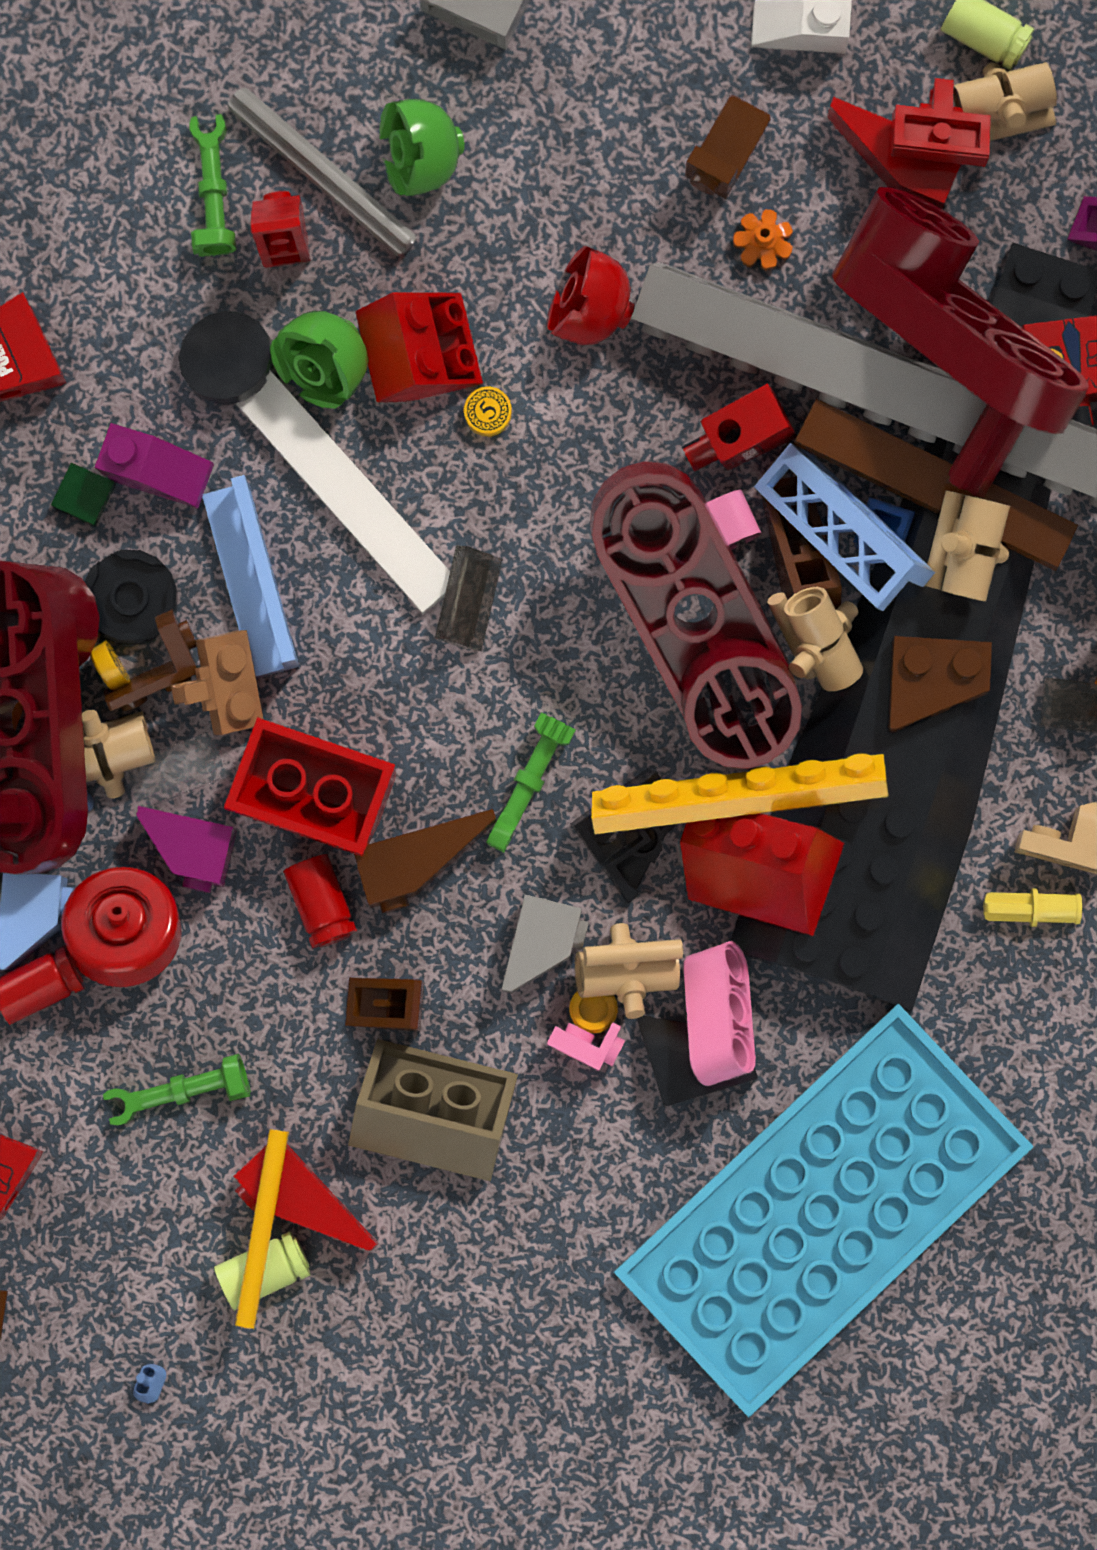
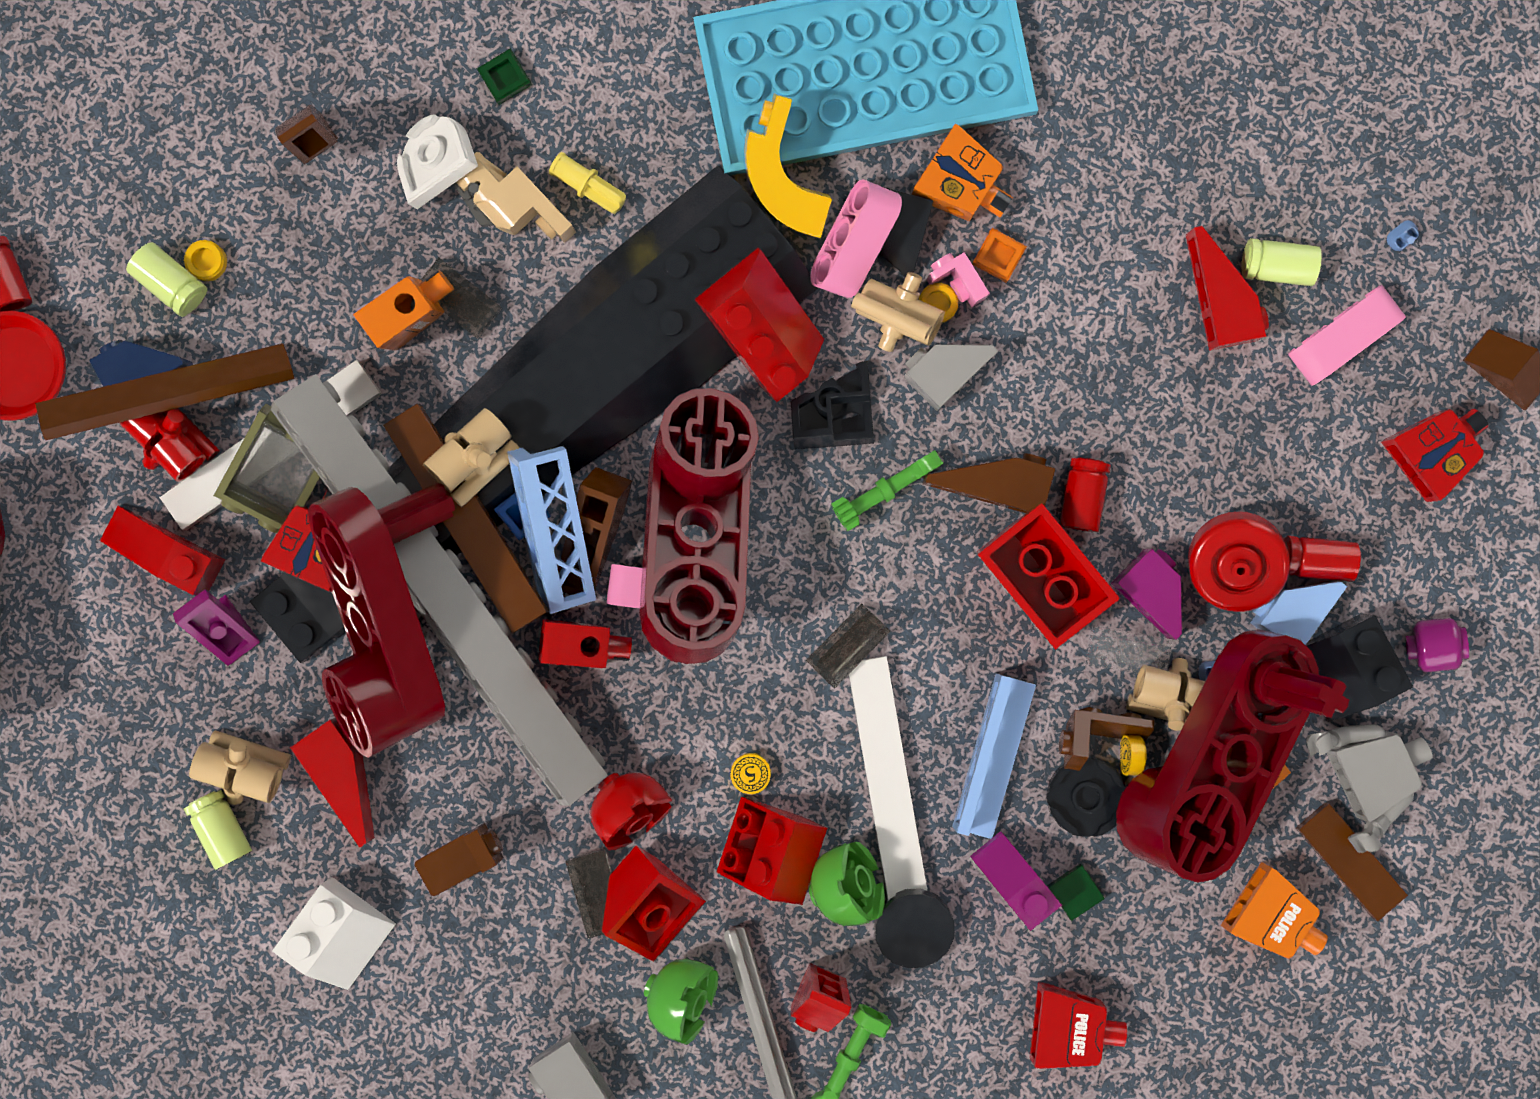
camera: 155 degrees left, 5 degrees up
(146, 1236) = (1347, 335): none -> bright pink beam
(181, 1089) = (1220, 411): bright green piece -> none
(224, 683) = (1060, 691): medium nougat hinge -> none
(261, 1229) = (1269, 285): yellow bar -> none
(385, 1003) = (1082, 393): reddish brown slope -> none
(432, 1109) = (1094, 300): dark tan slope -> none
(511, 217) = (647, 904): none -> red slope
(560, 1099) = (999, 255): none -> orange tile
(569, 197) = (590, 881): none -> clear smoke plate
(648, 1151) = (963, 178): none -> orange torso
(739, 793) = (746, 379): yellow plate -> none
(763, 240) = (484, 776): orange plant -> none
(818, 637) = (619, 459): tan pin -> none
(824, 1012) = (786, 201): none -> yellow arch
(935, 676) = (555, 378): reddish brown wing -> none
(940, 130) = (297, 773): red hinge -> none

